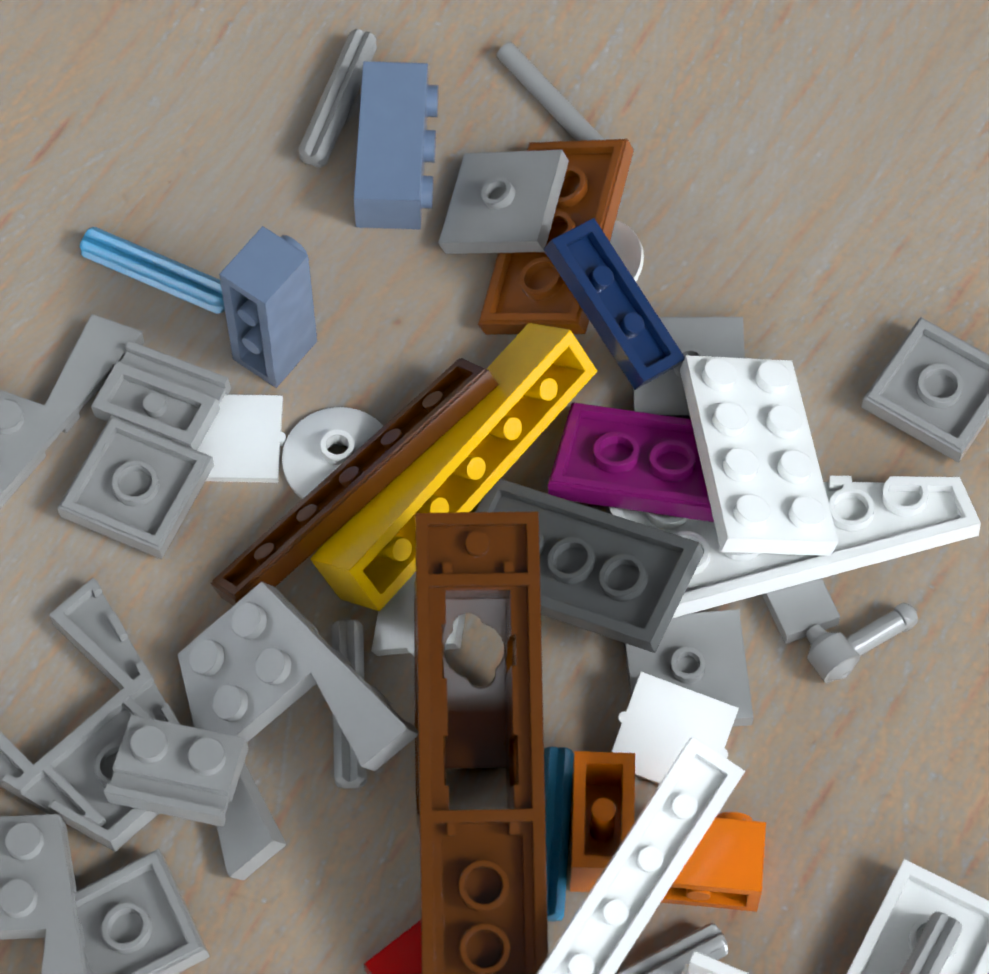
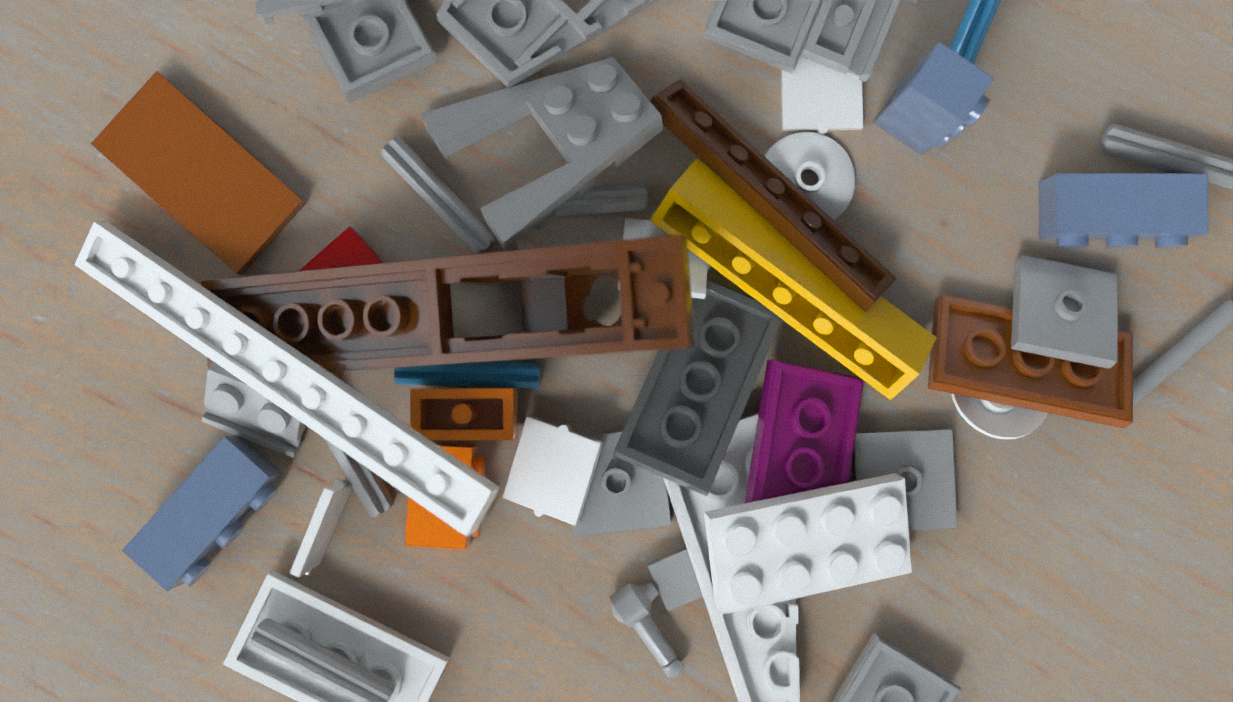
camera: 85 degrees right, 25 degrees up
(176, 770) = (495, 60): light grey plate -> none
(331, 861) = (438, 196): none -> light grey axle
(614, 303) = (953, 412): dark blue plate -> none

